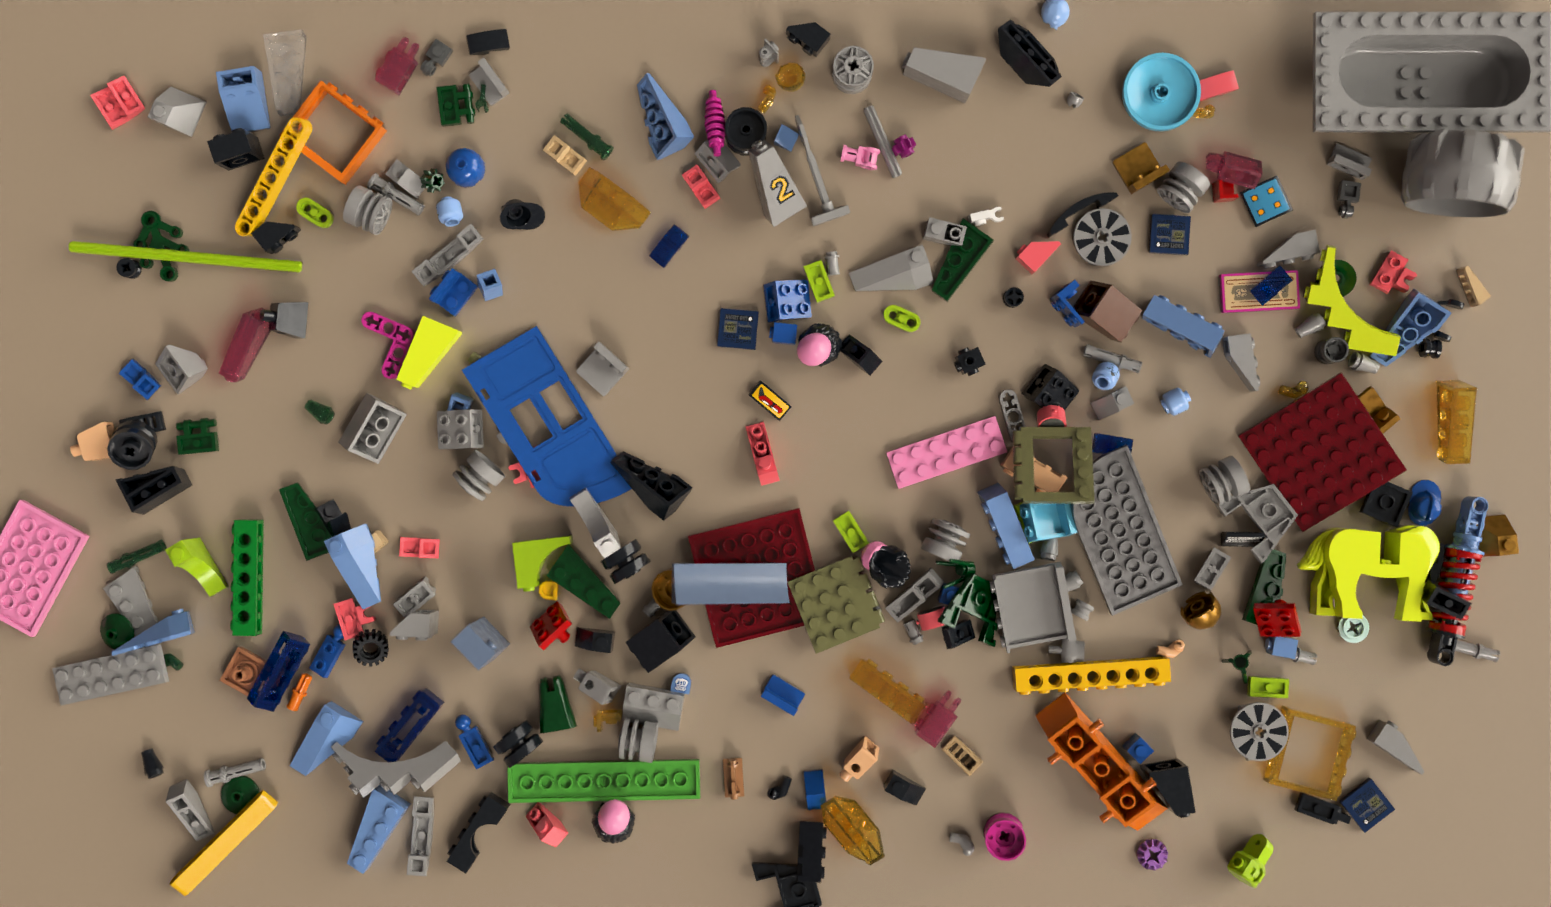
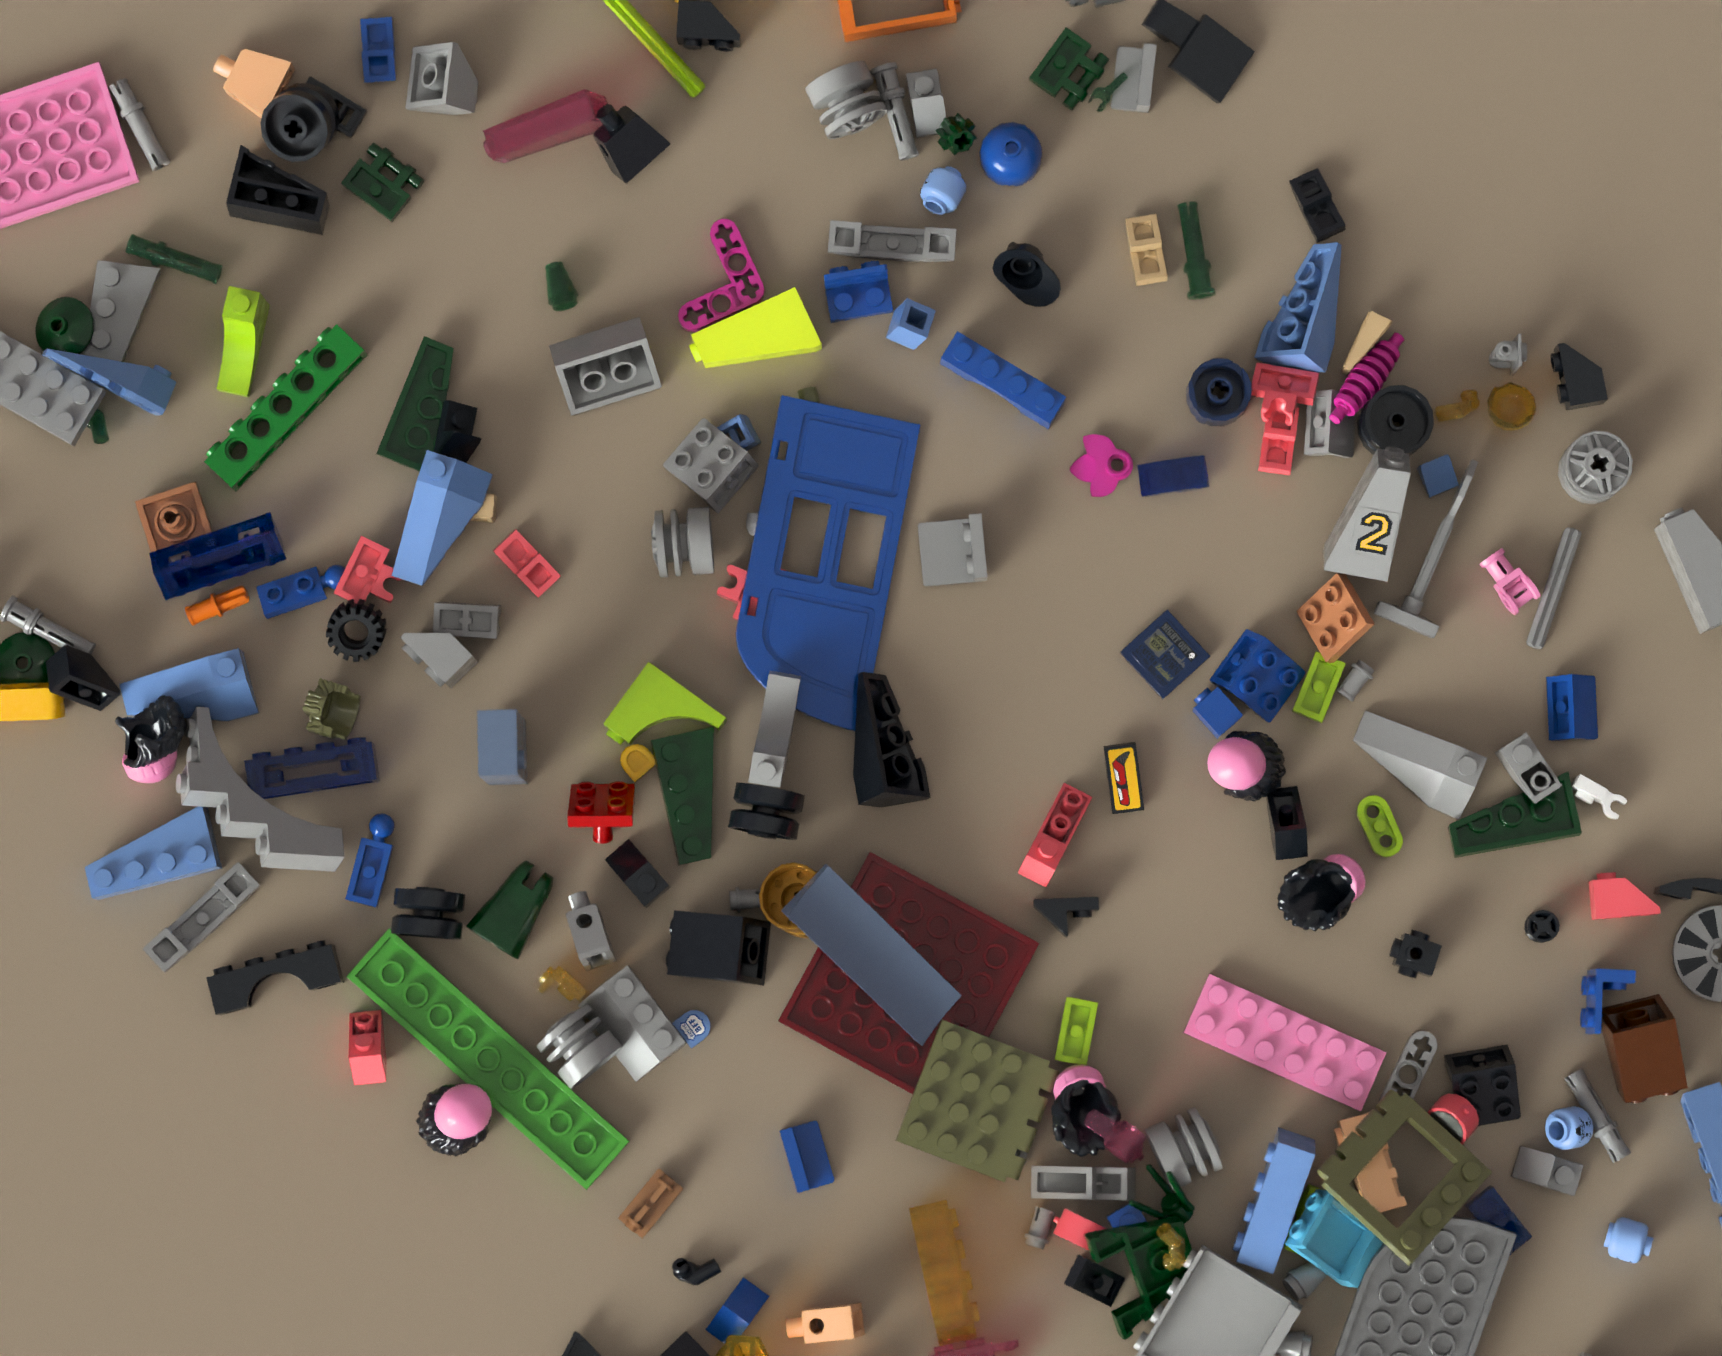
camera: 50 degrees right, 5 degrees down
(57, 508) = (133, 112): none -> light grey pin
(268, 781) = (80, 678): none -> black slope
(315, 214) = (777, 44): lime plate -> none
(326, 779) = (152, 740): none -> black hair
(392, 692) = (331, 710): none -> olive hair
(514, 42) = (1211, 58): none -> black tile
(559, 270) = (1003, 378): none -> blue arch
(610, 203) = (1149, 357): clear yellow wedge -> none
(622, 65) = (1317, 205): none -> black slope
(630, 271) = (1096, 465): none -> dark pink plate
(653, 179) = (1229, 378): none -> dark blue brick
(682, 162) = (1283, 389): none -> coral plate
(697, 99) = (1369, 333): none -> tan slope
(793, 485) = (1056, 910): none -> black slope
(798, 243) = (1335, 617): none -> nougat plate
(902, 371) = (1321, 891): none -> black hair
(903, 146) = (1574, 617): magenta gear -> none
(913, 562) = (1119, 1138): none -> clear pink axle
(938, 187) = (1572, 707): none -> blue panel
(986, 592) = (1176, 1245): none -> clear yellow arm

